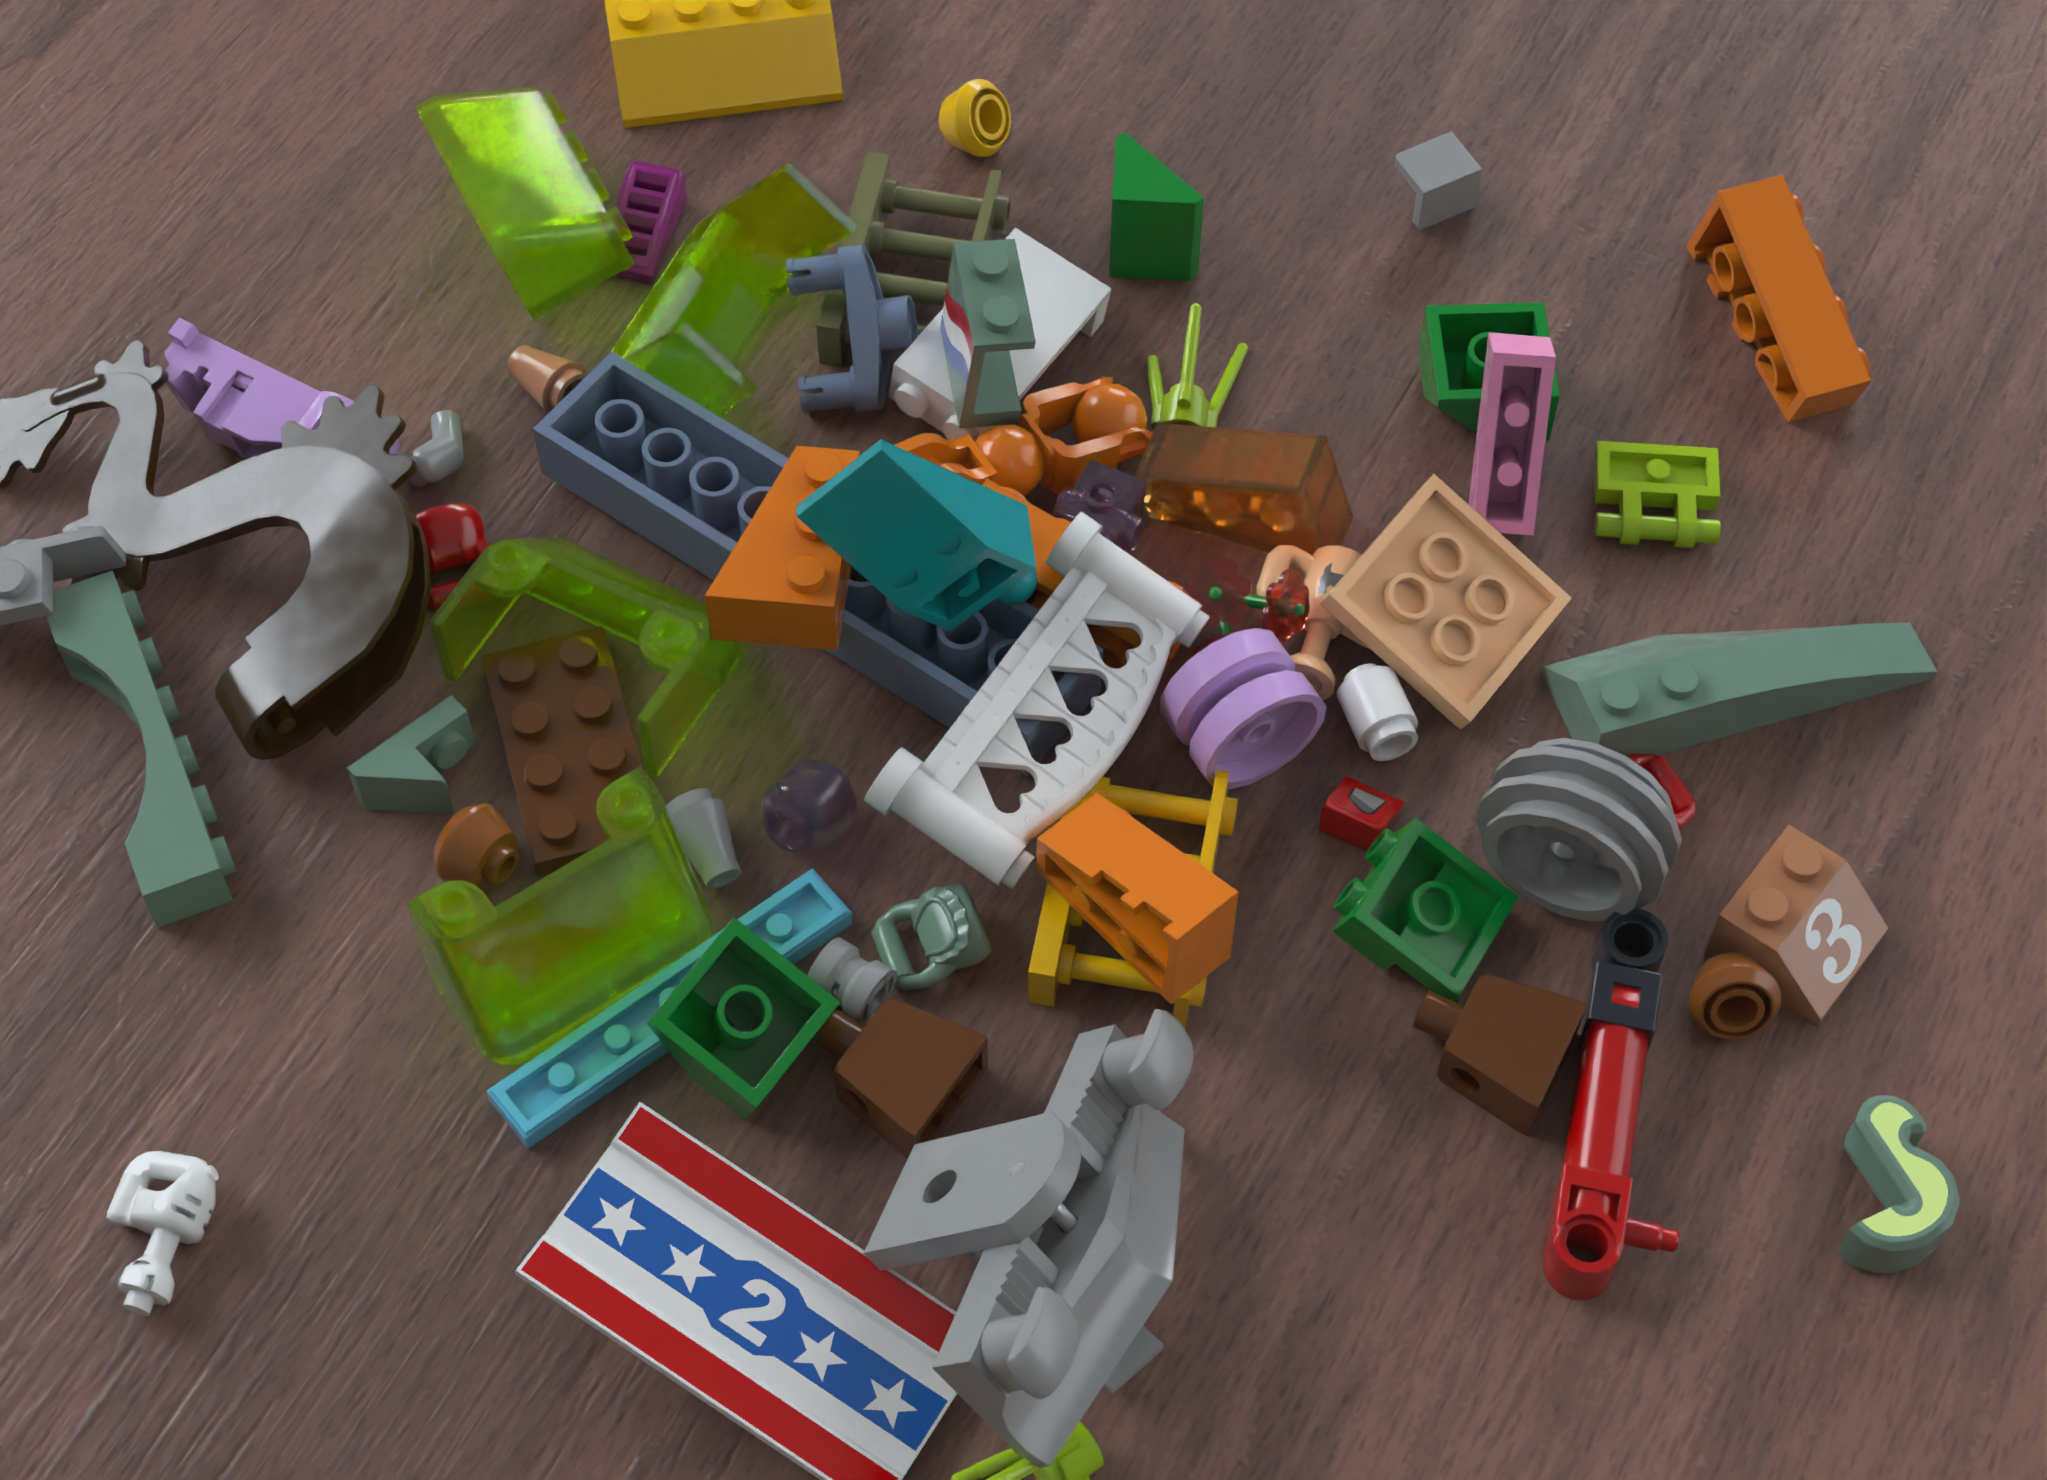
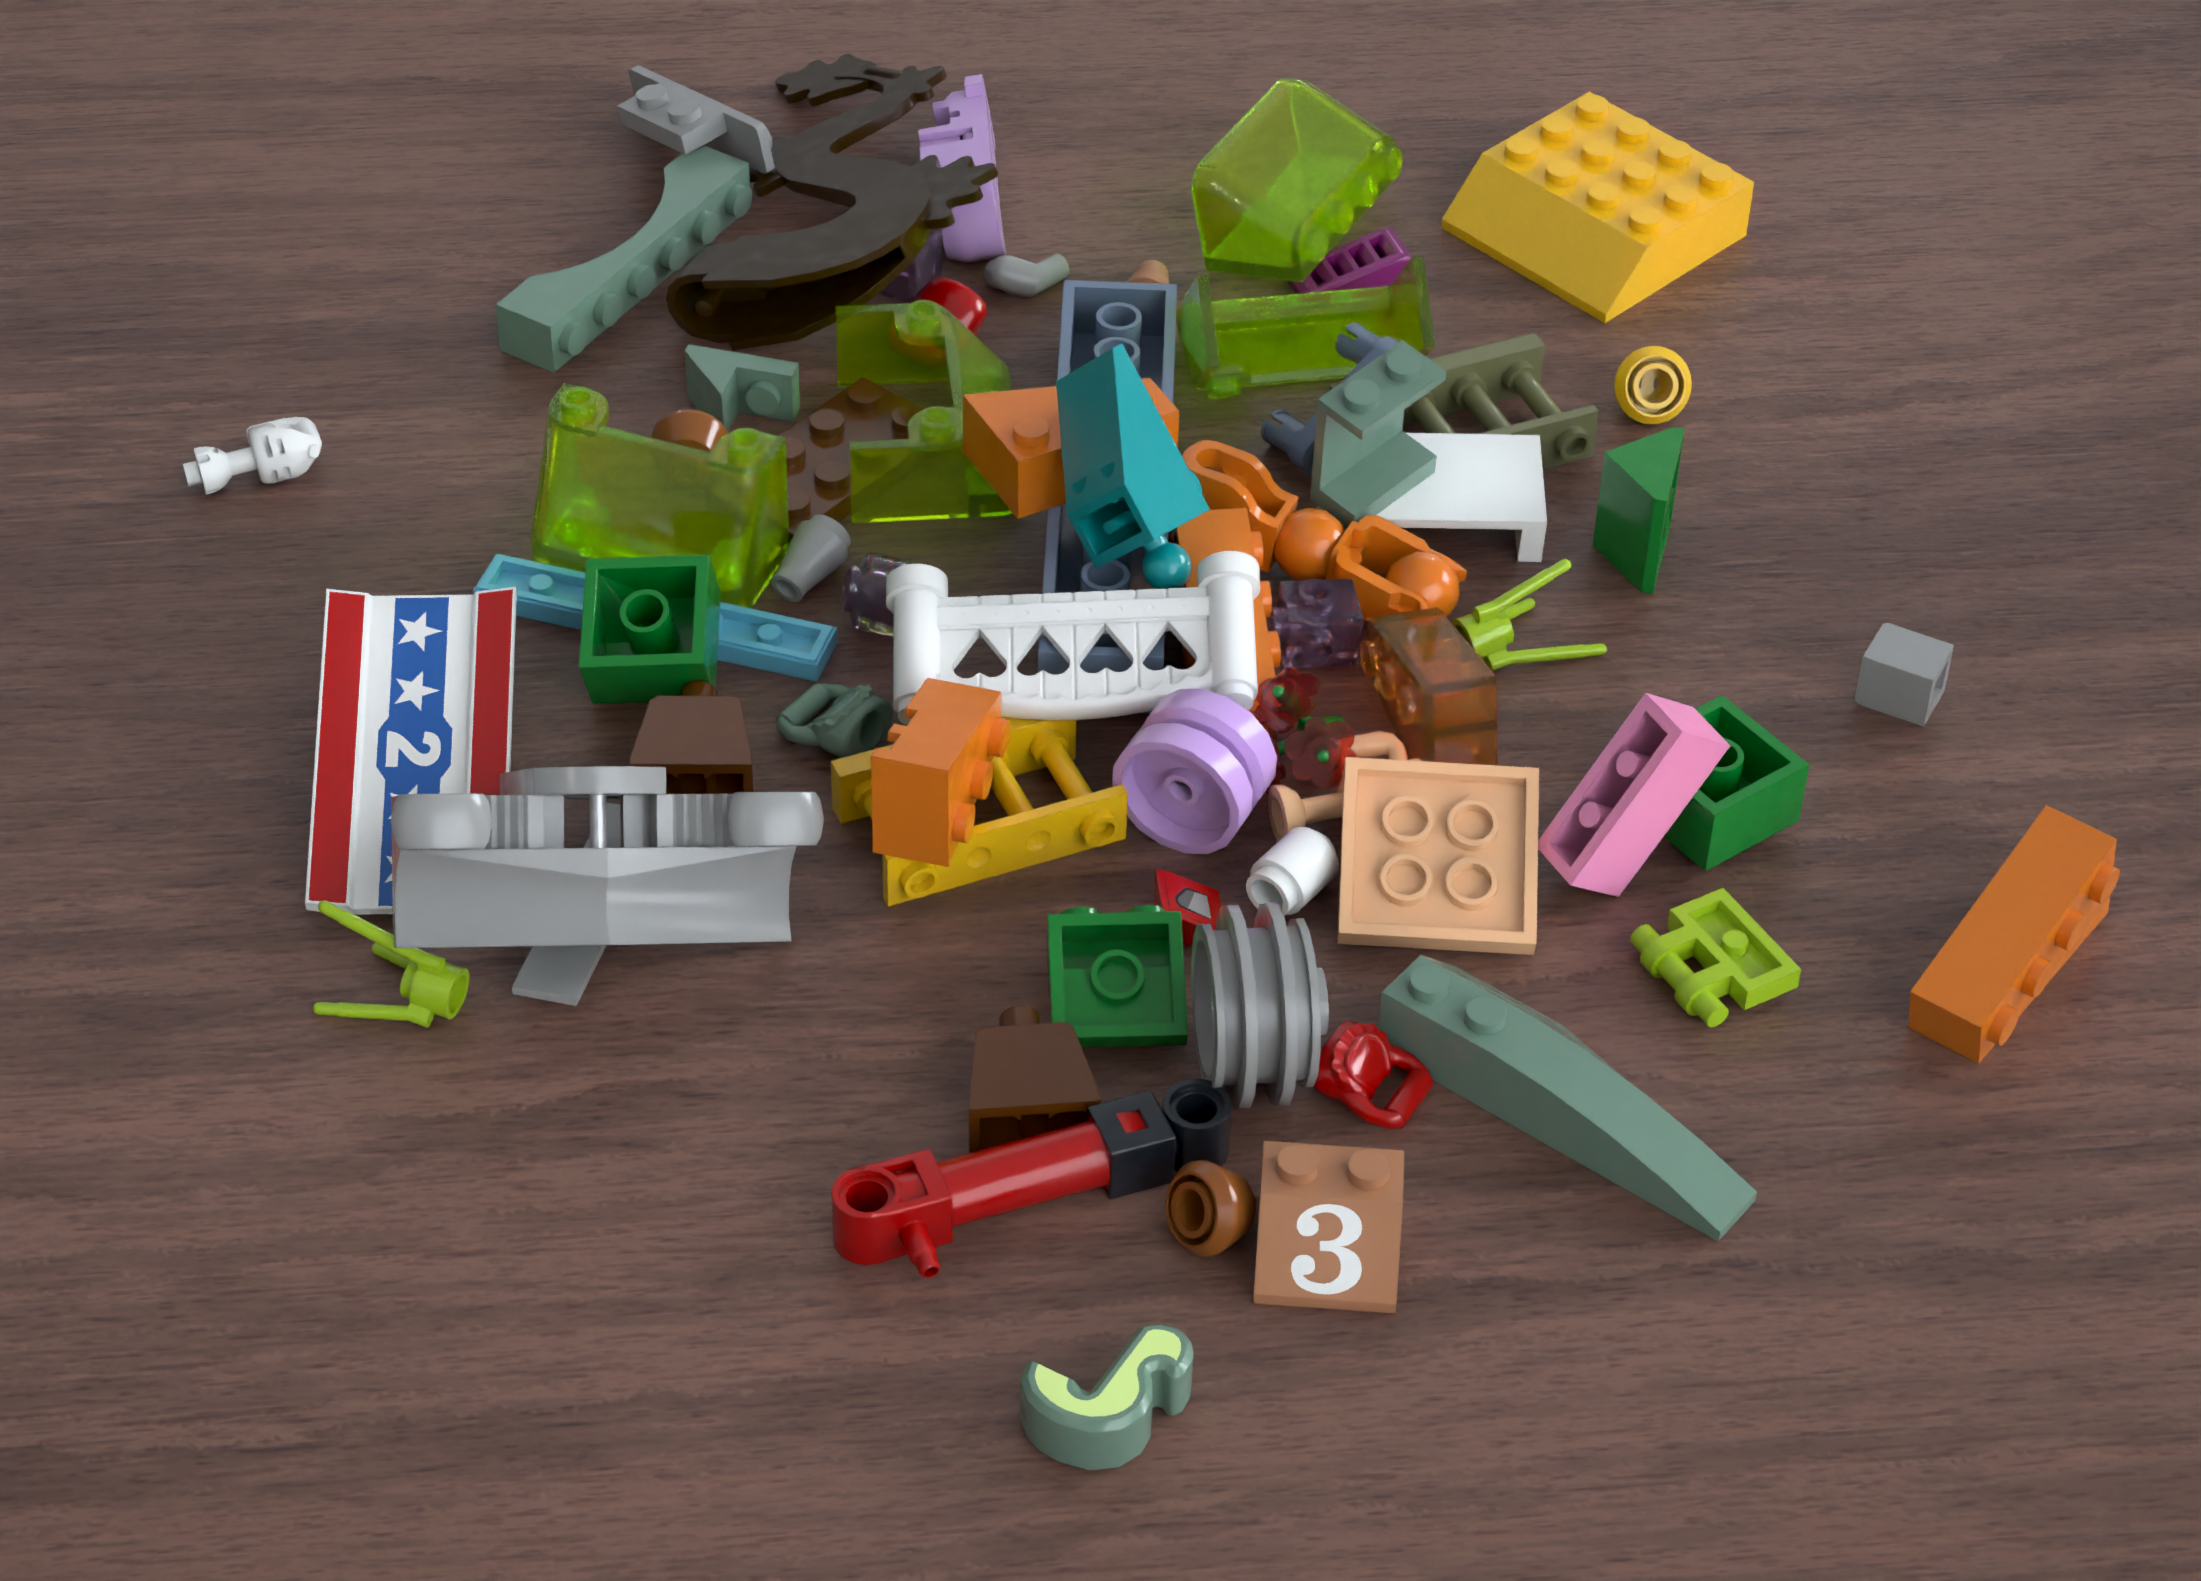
camera: 55 degrees right, 15 degrees down
(852, 980) = (754, 678): light grey wheel -> none

